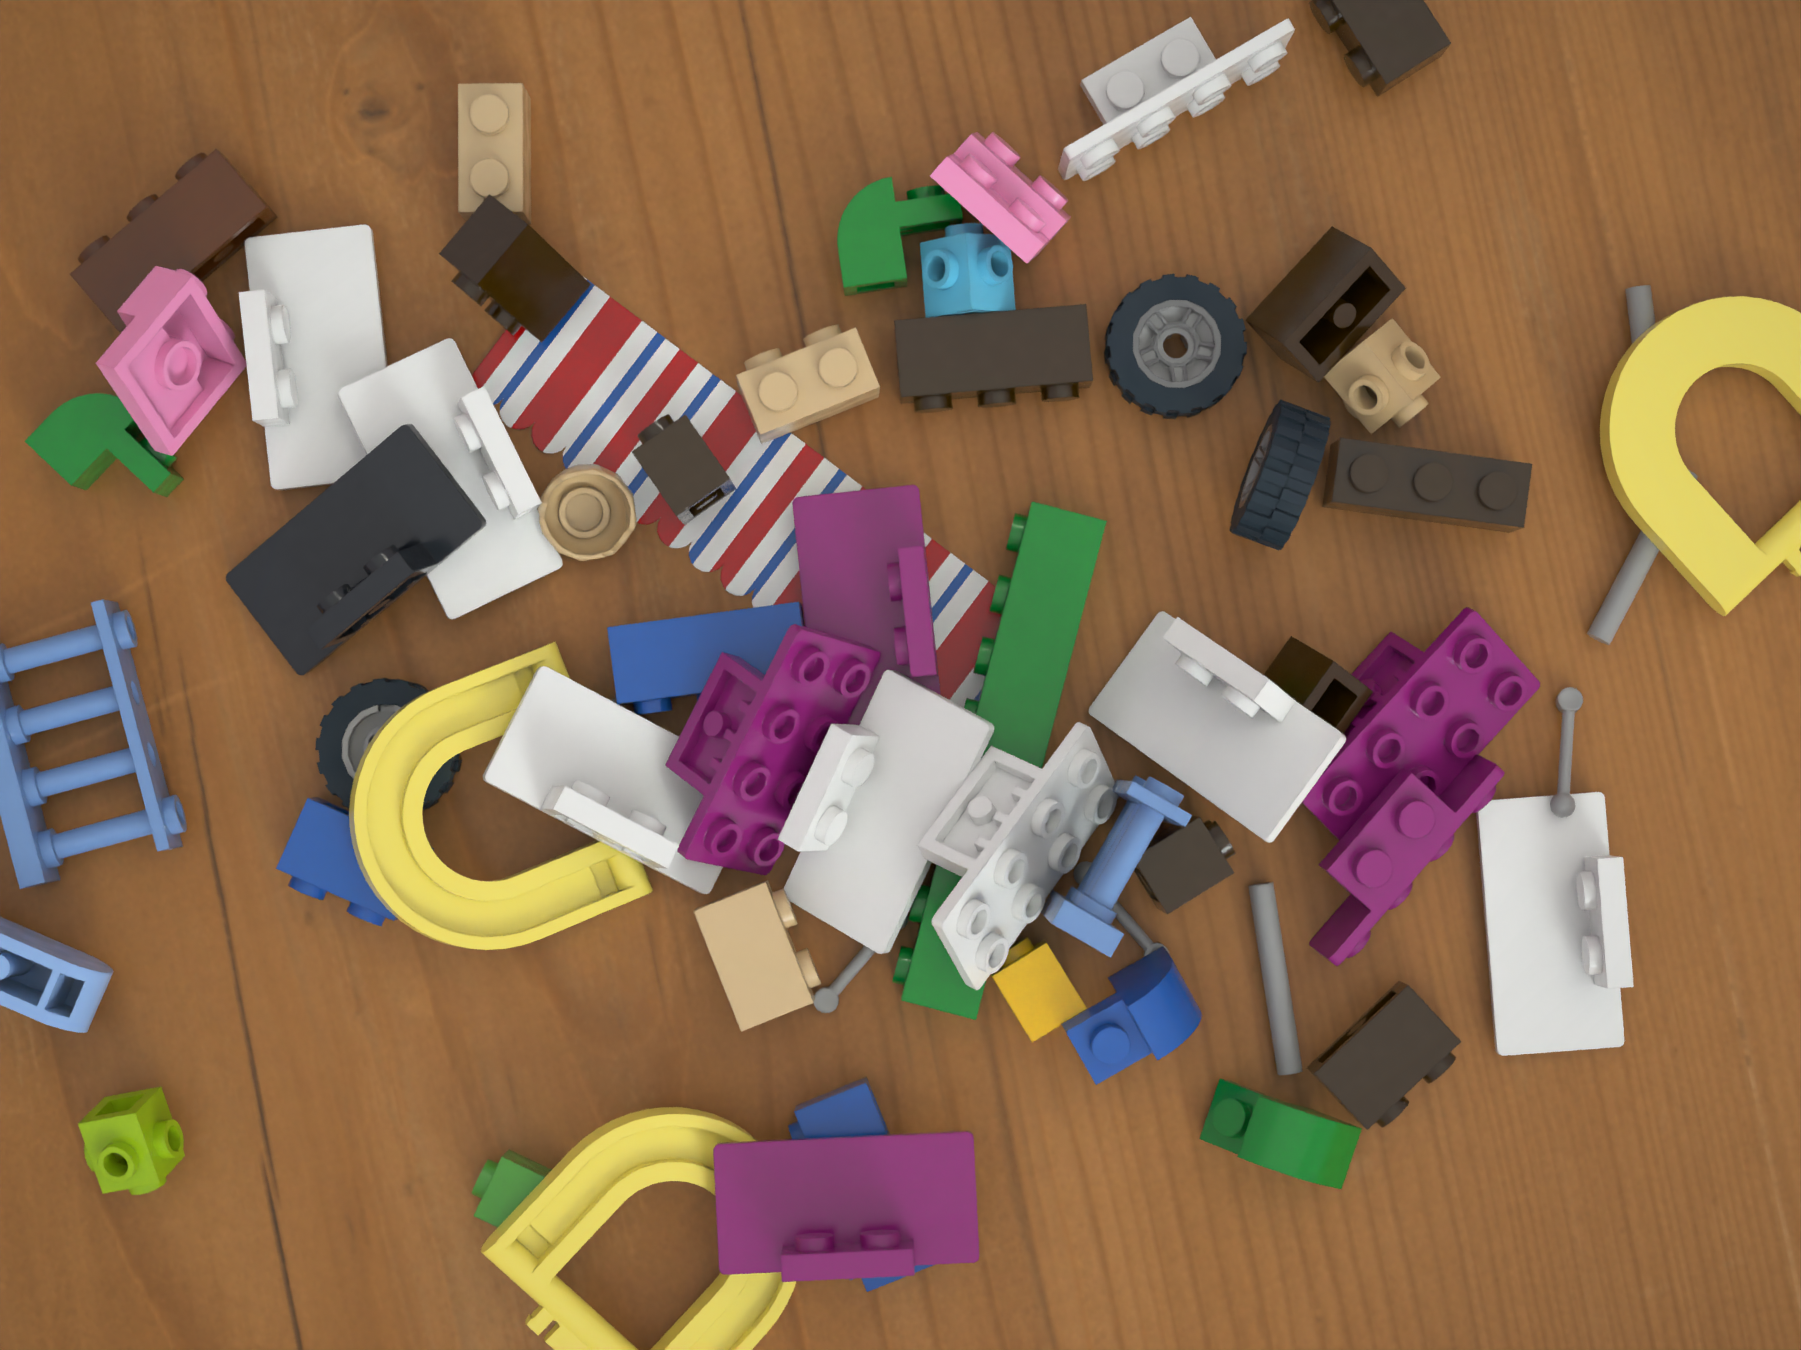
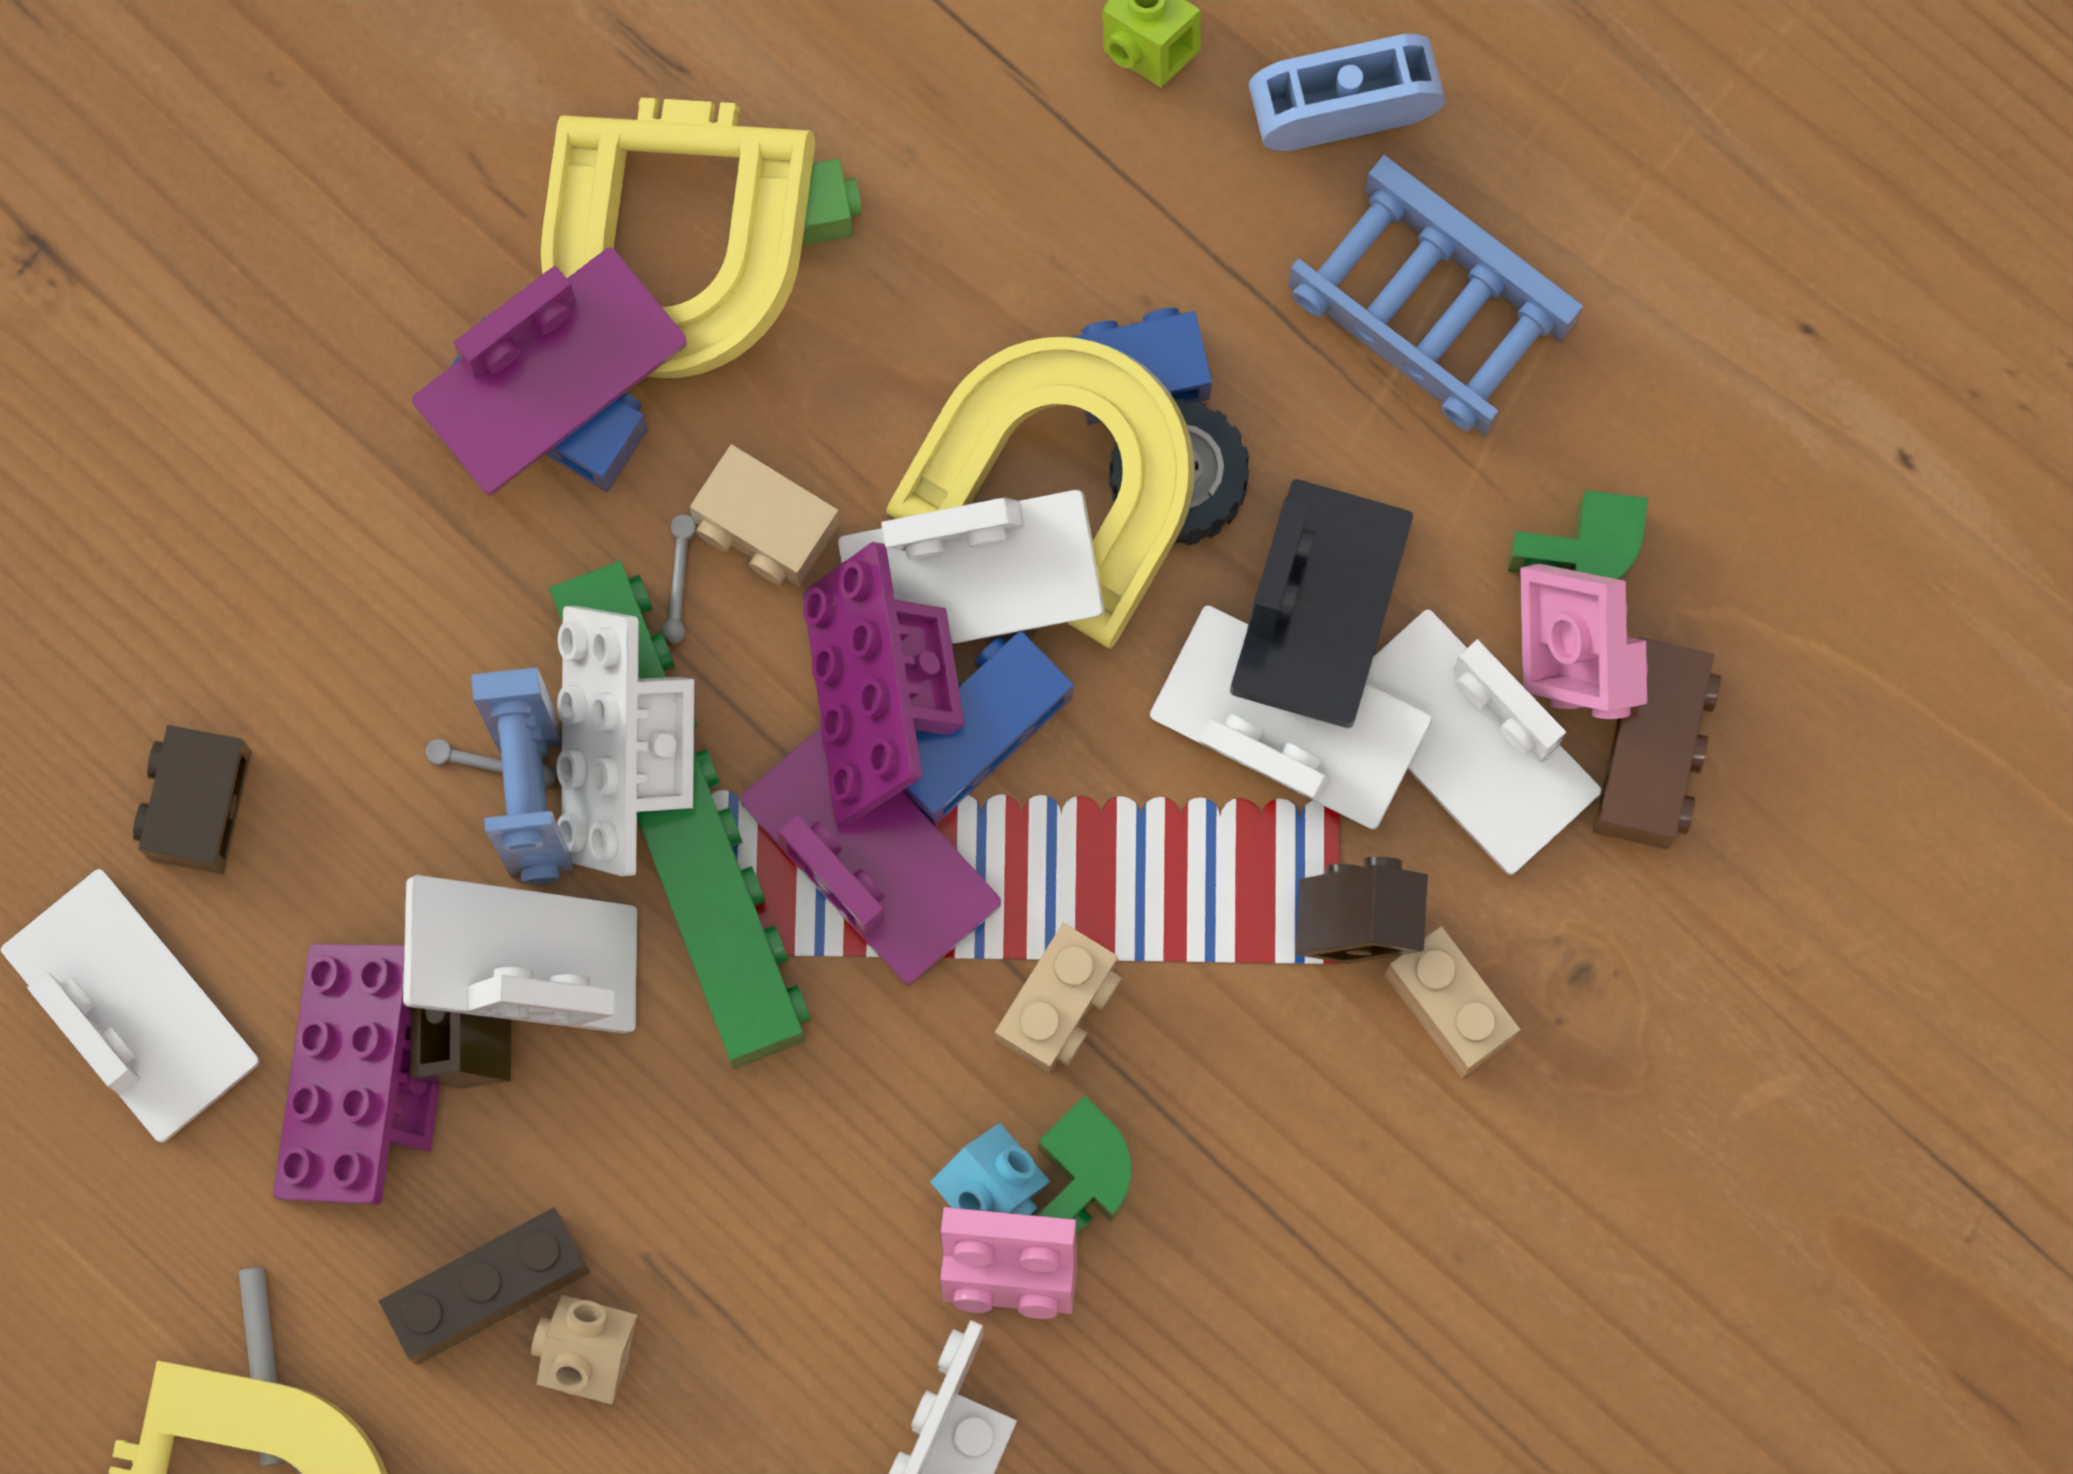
camera: 145 degrees right, 10 degrees down
(587, 512) = (1160, 769): tan hair -> none
(682, 467) = (1106, 853): dark brown brick -> none
(873, 802) = (755, 699): white bracket -> none
(993, 357) = (920, 1133): dark brown brick -> none
(1037, 988) = (513, 643): yellow brick -> none
(1143, 1017) = (410, 690): blue brick -> none
(1184, 863) = (457, 828): dark brown brick -> none
(1206, 328) = (740, 1247): black wheel -> none
(1275, 978) = (328, 802): light grey bar -> none
(1280, 475) = (612, 1199): black wheel -> none
(1280, 1135) = (233, 671): green brick -> none
(1325, 303) = (676, 1373): dark brown brick -> none
(1392, 846) = (305, 969): magenta bracket -> none
(1568, 703) = (239, 1199): light grey hinge -> none

